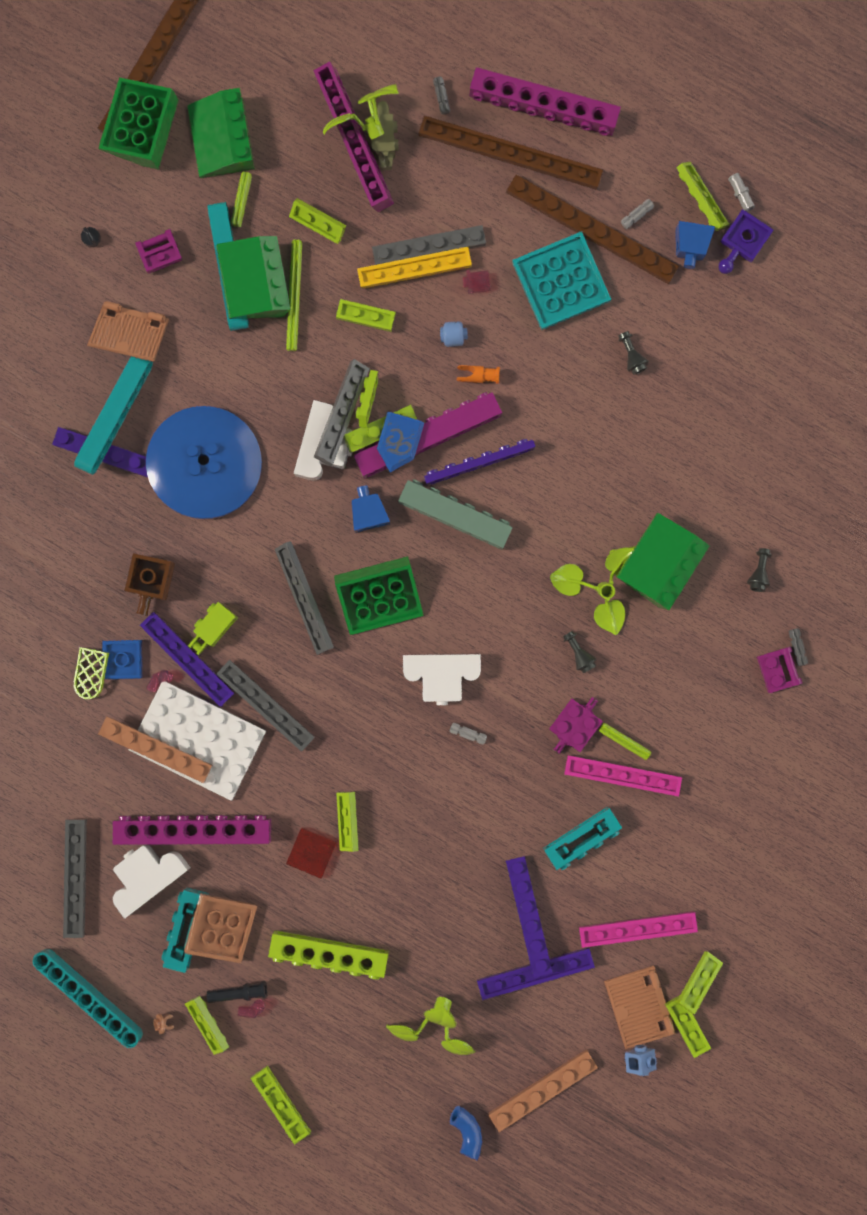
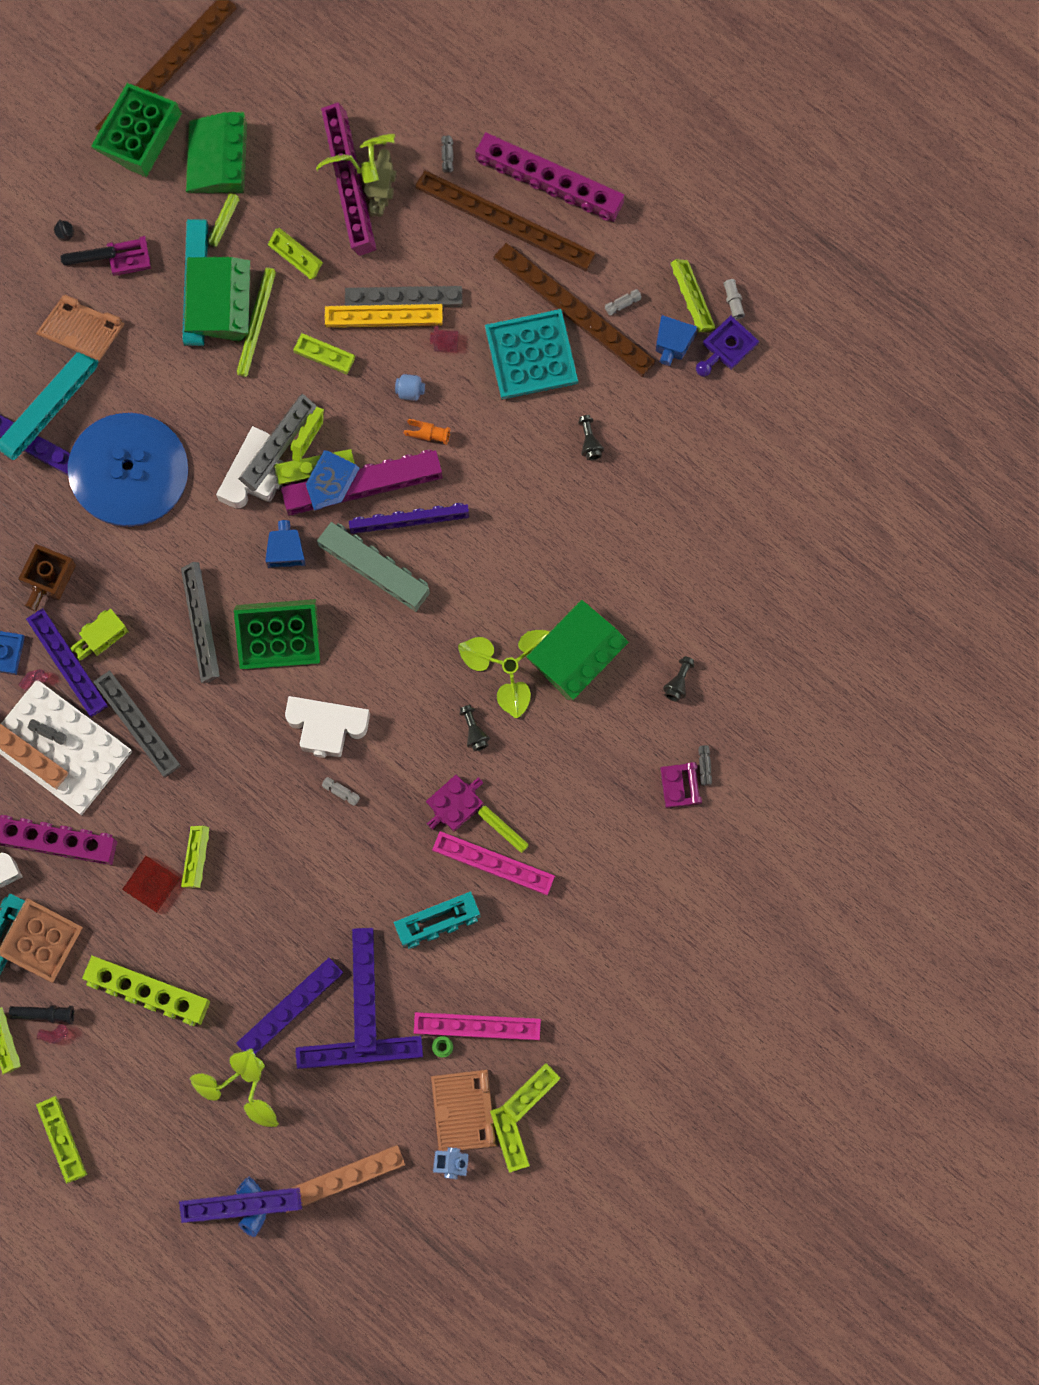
camera: 15 degrees right, 10 degrees down
(120, 258) = (88, 255): none -> black axle
(183, 730) = (47, 731): none -> dark grey axle
(459, 1138) = (240, 1205): none -> dark purple plate
(463, 944) = (290, 1007): none -> dark purple plate
(609, 959) = (435, 1046): none -> bright green plate

